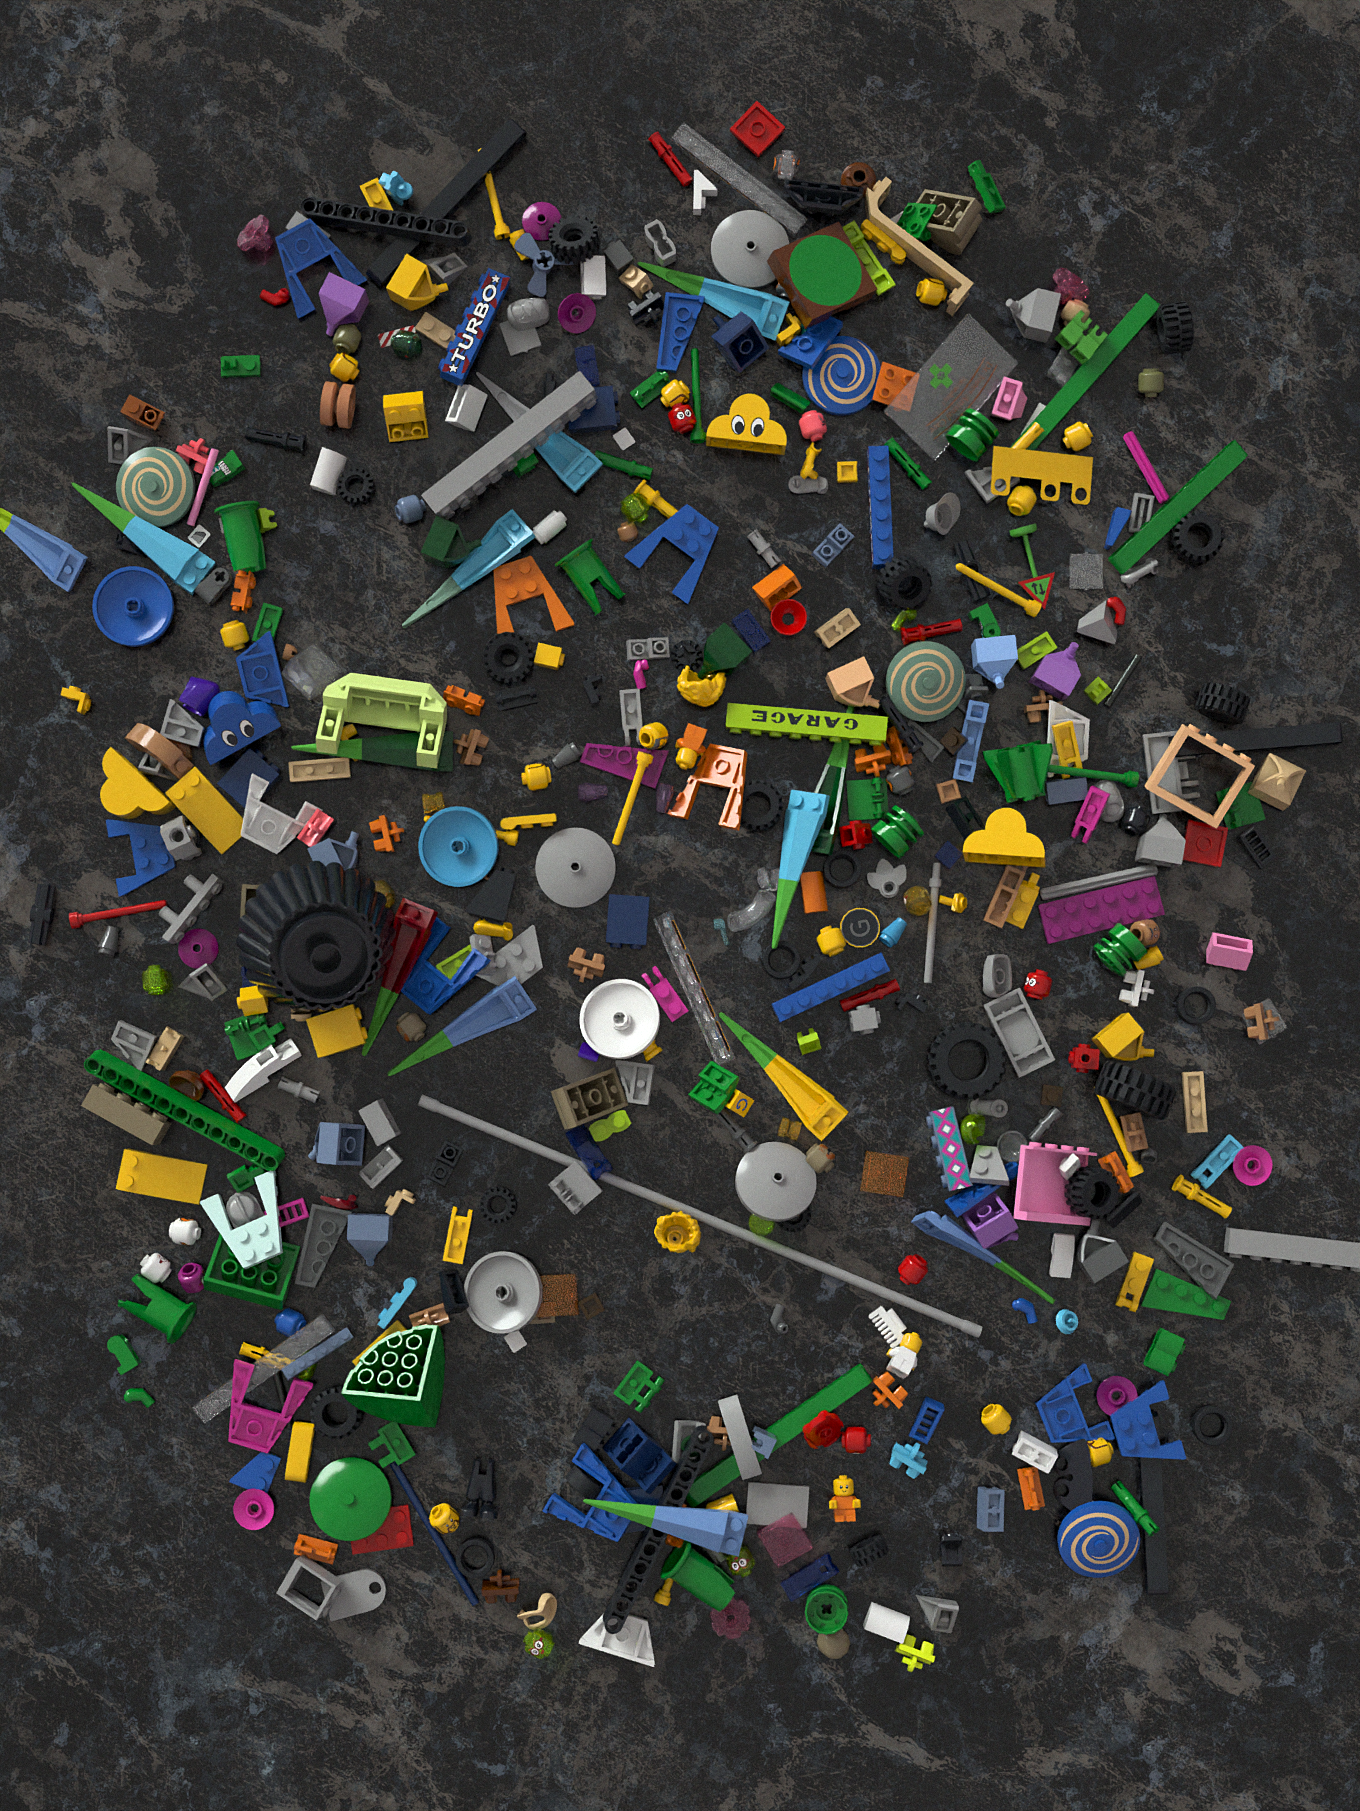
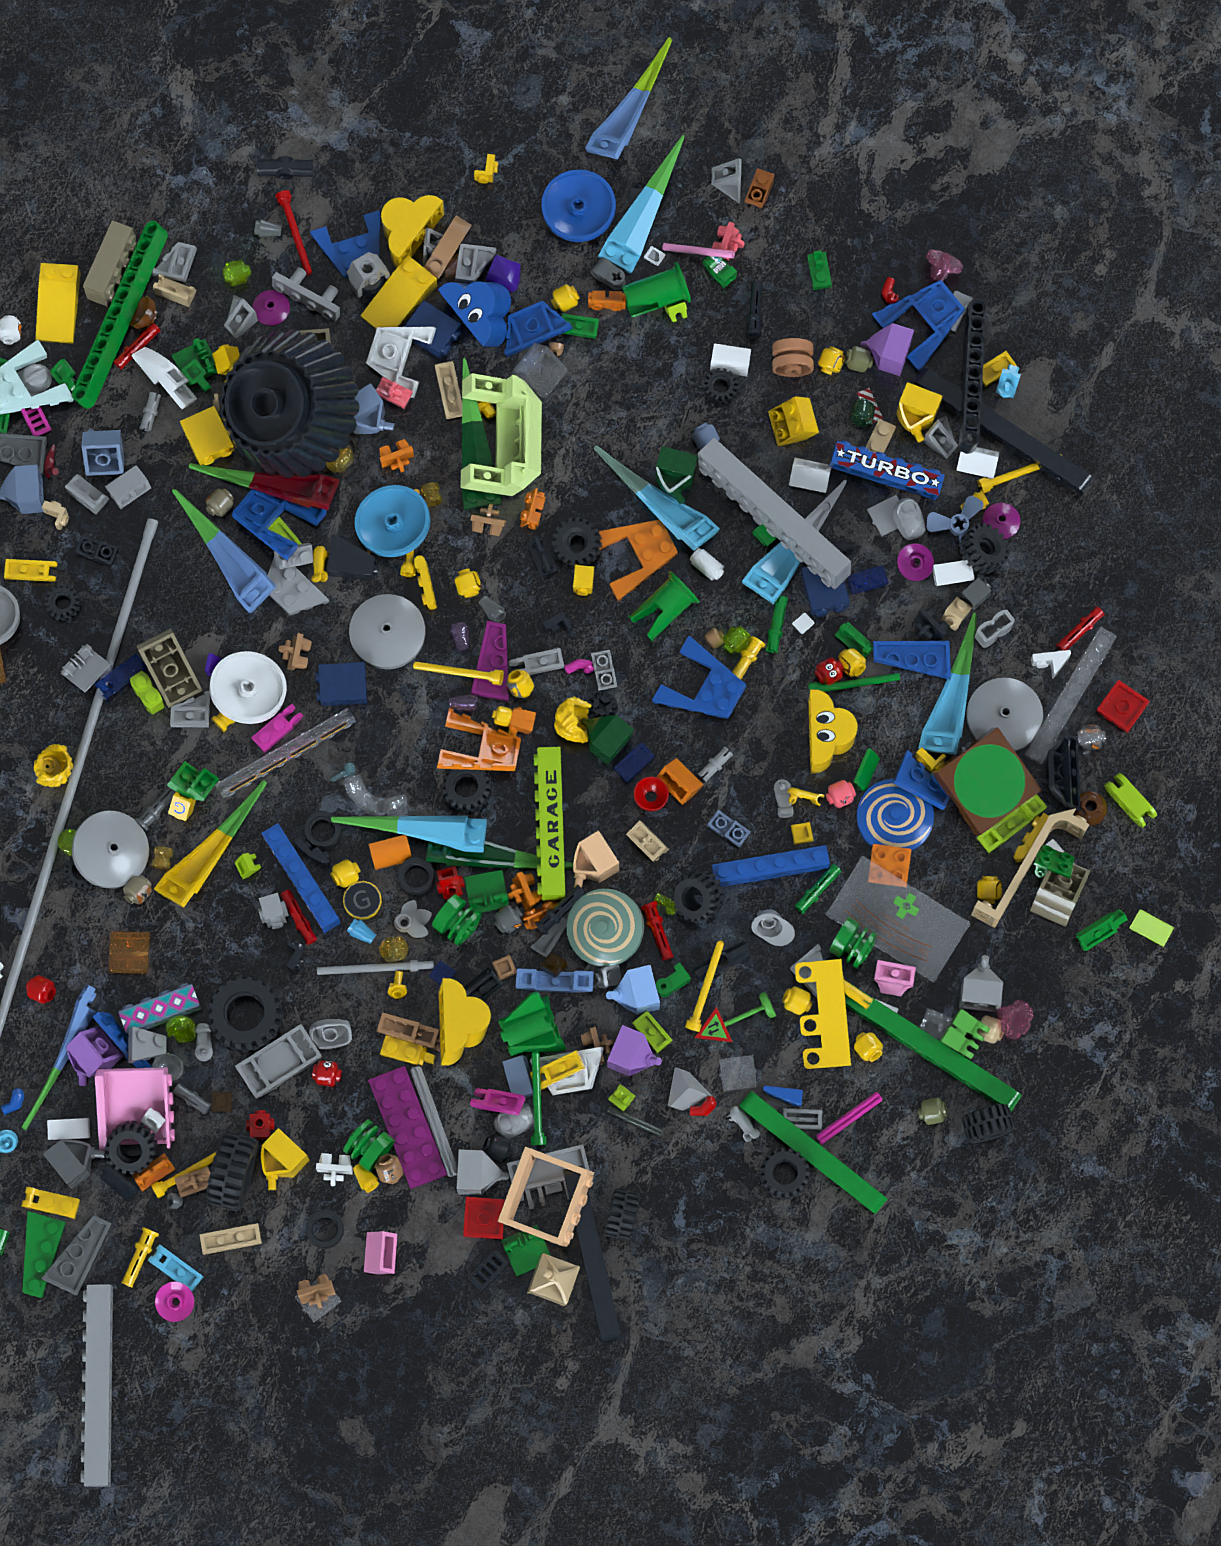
camera: 85 degrees right, 10 degrees down
(156, 486) = (693, 210): sand green dish -> none
(481, 228) = (980, 462): none -> white brick
(739, 341) = (910, 712): dark blue piece -> none
(857, 137) = (1130, 799): none -> lime piece
(990, 138) = (1151, 927): none -> lime slope

